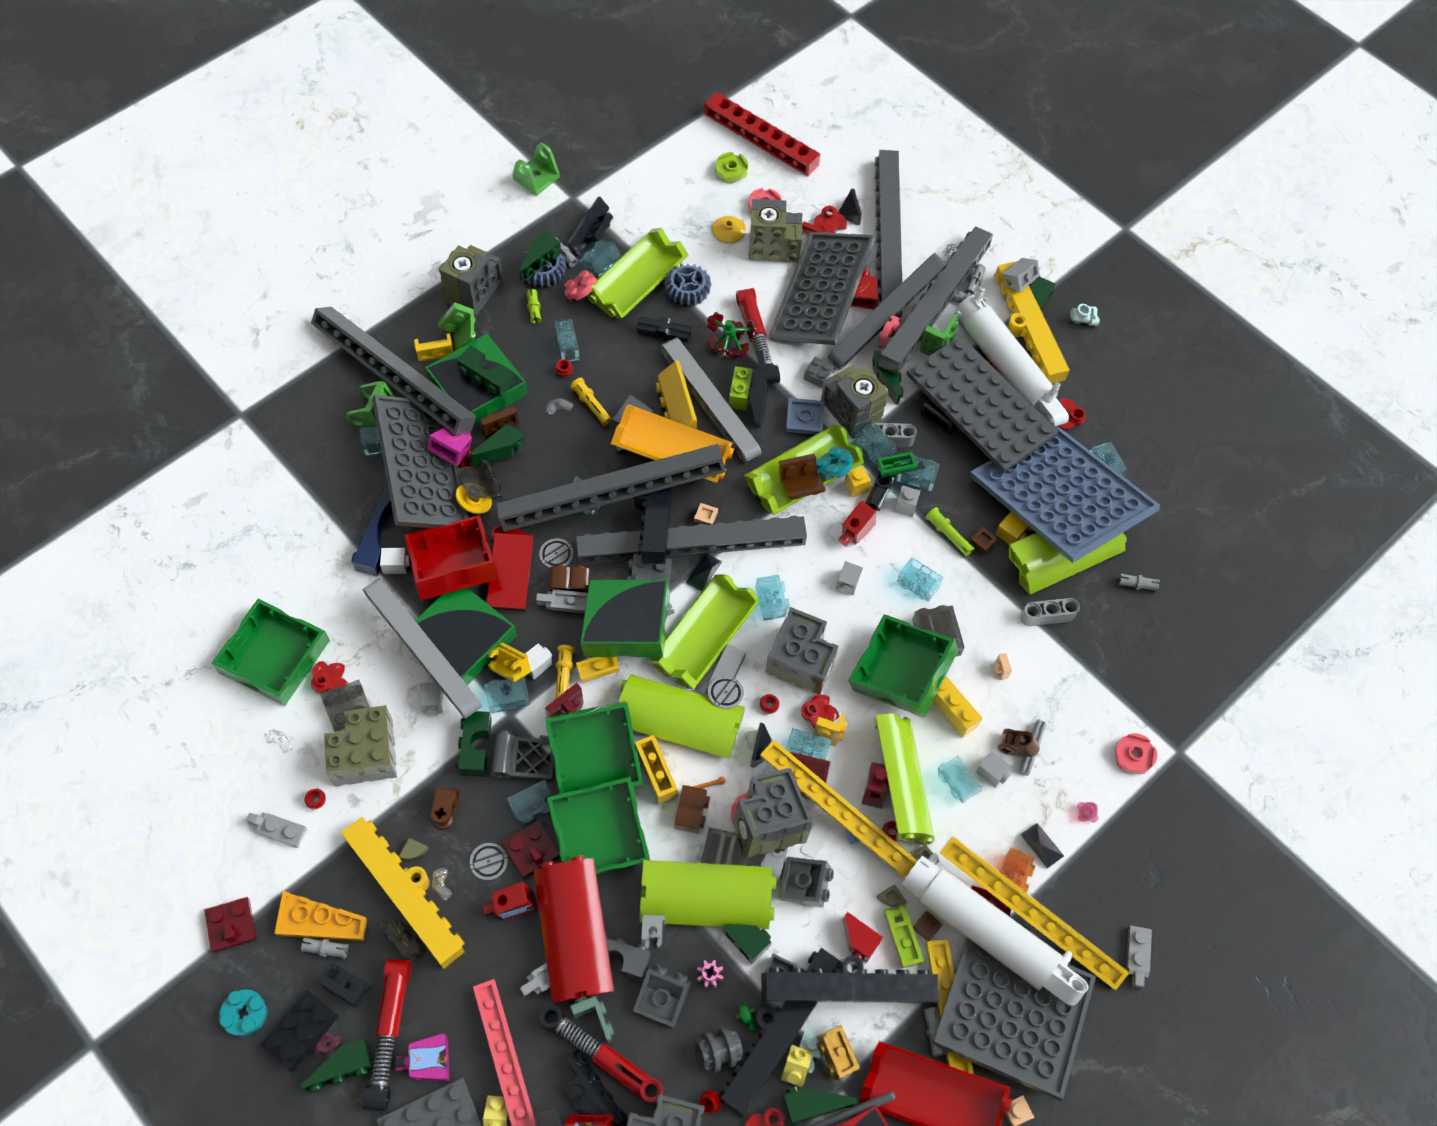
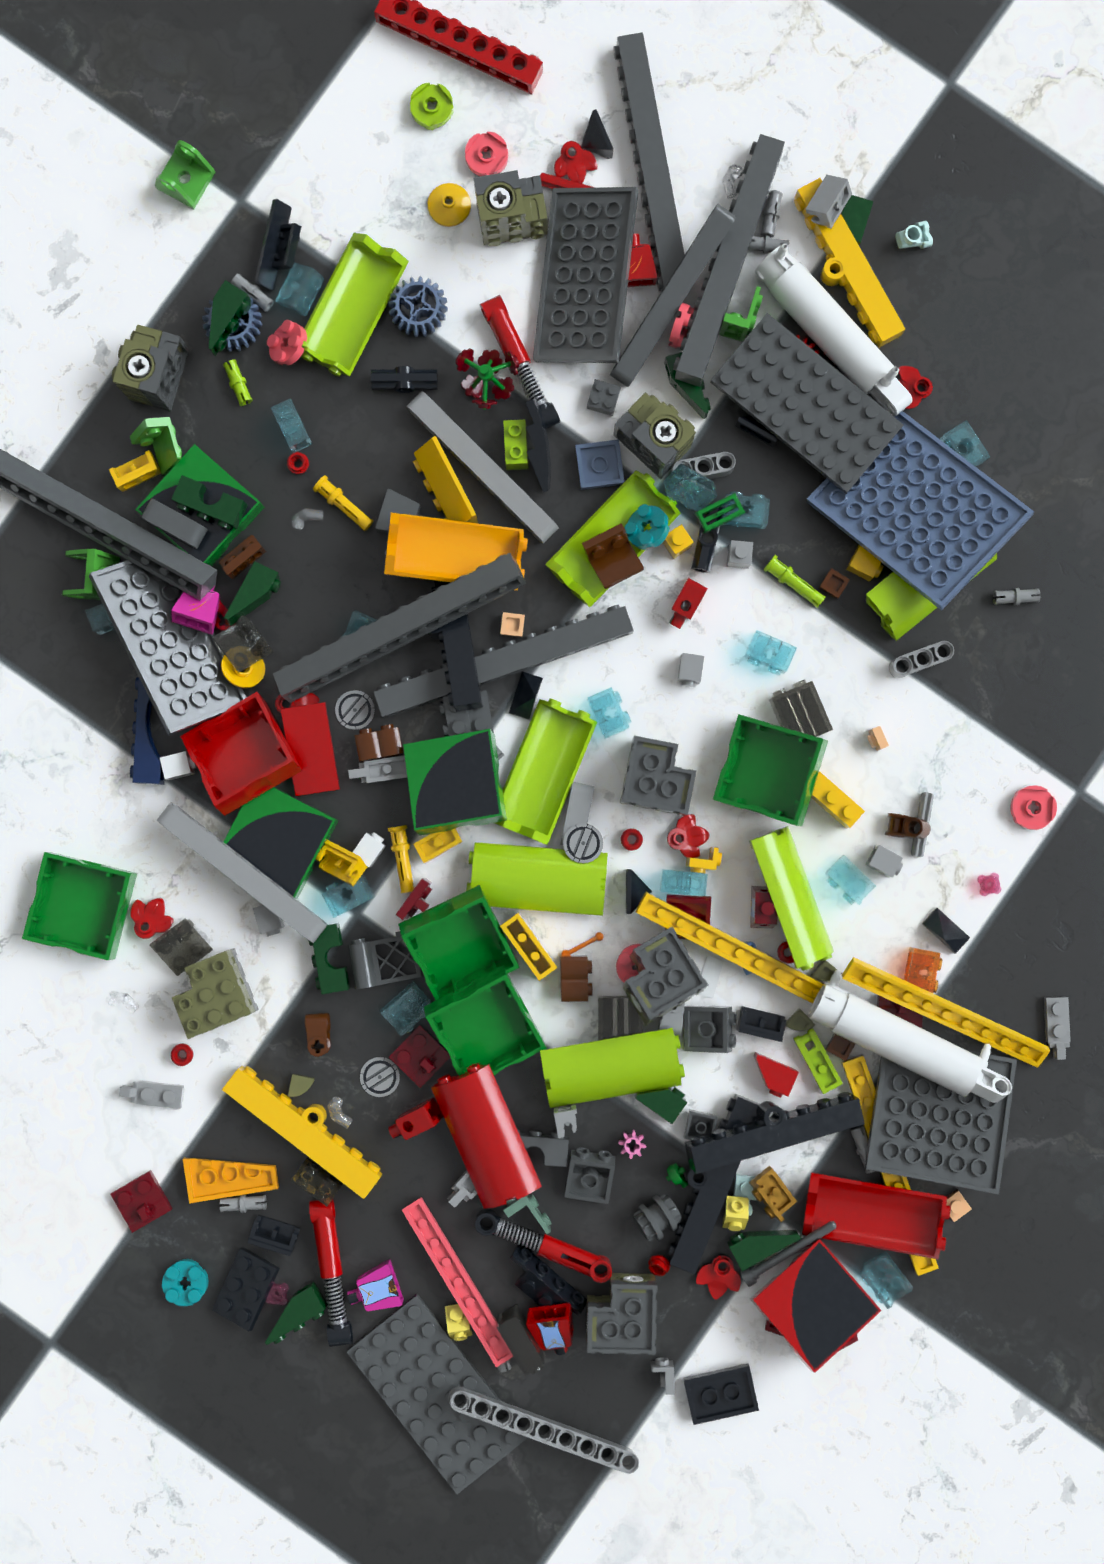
camera: 10 degrees left, 25 degrees up
(452, 380) = (174, 523): none -> dark grey beam
(855, 890) = (761, 1024): none -> black hinge

